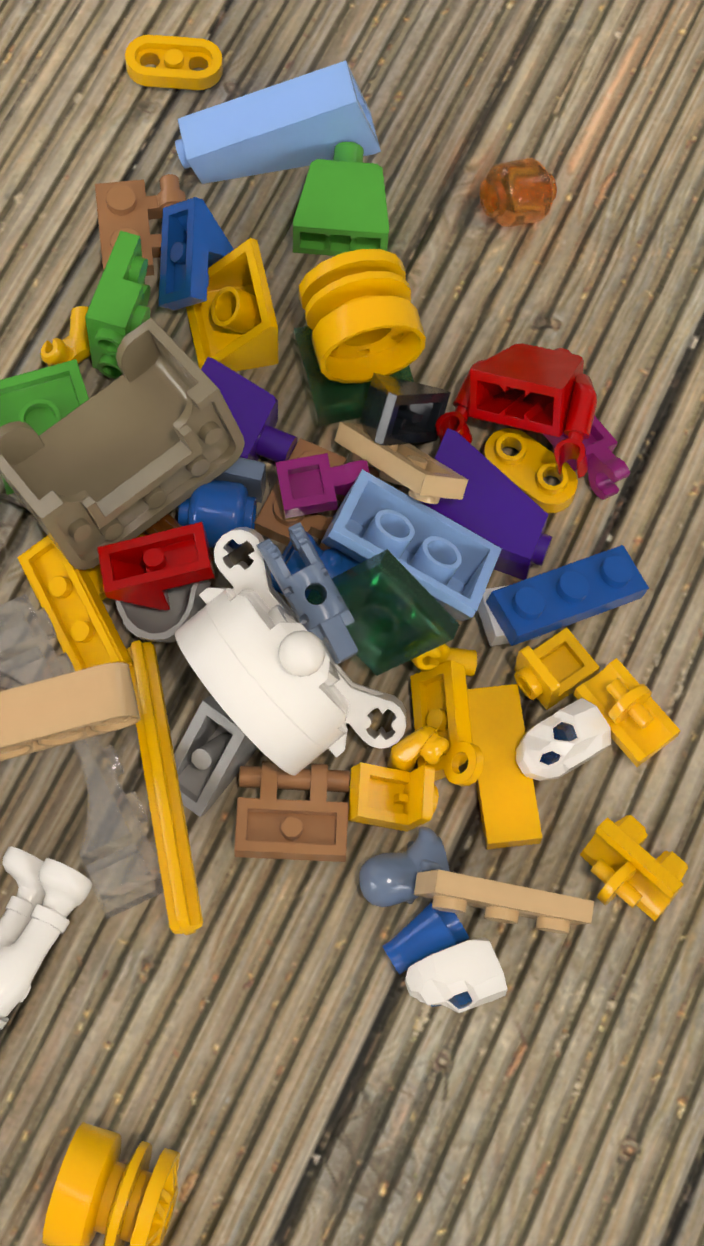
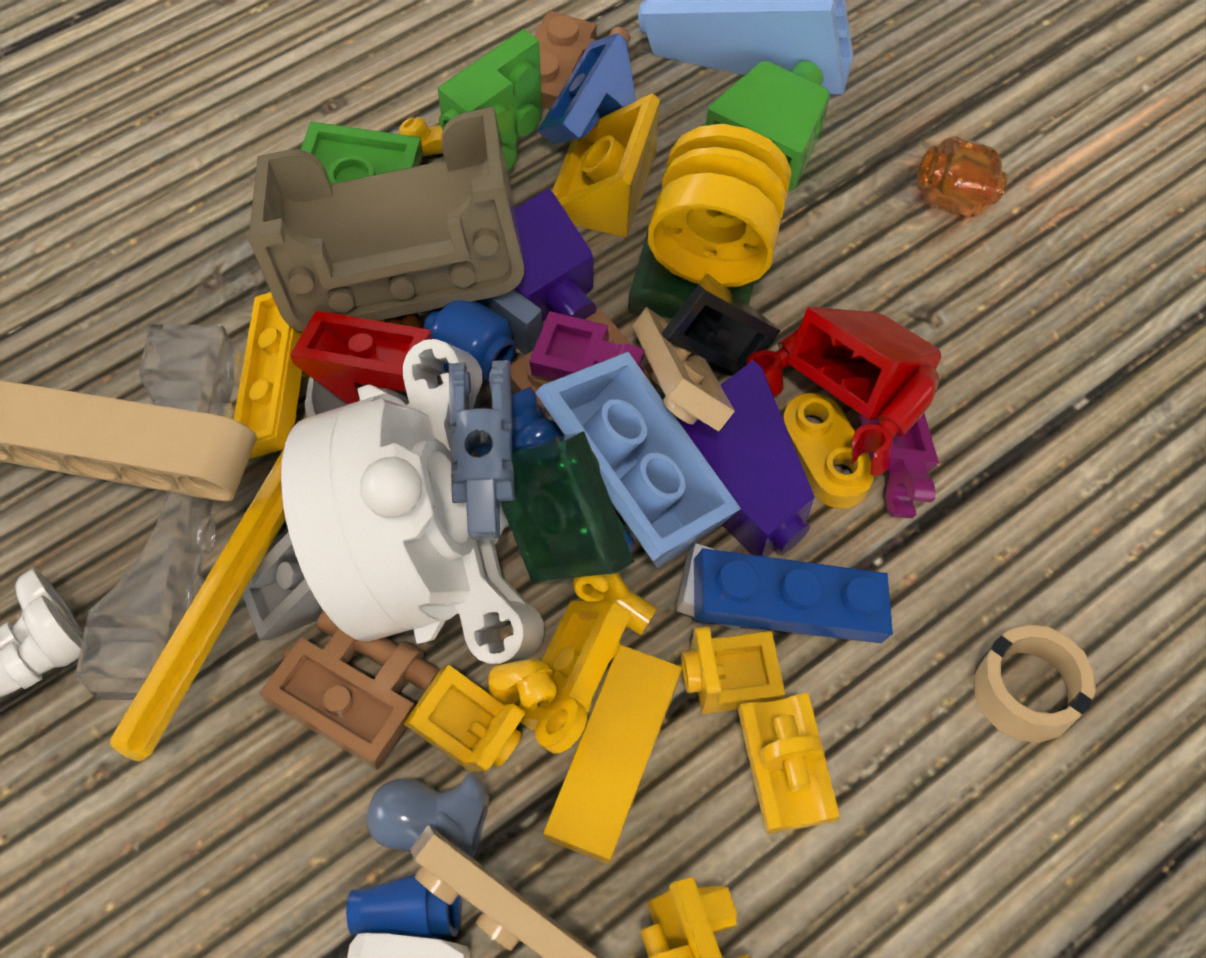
camera: 30 degrees right, 5 degrees down
(563, 741) = (694, 759): white rock -> none

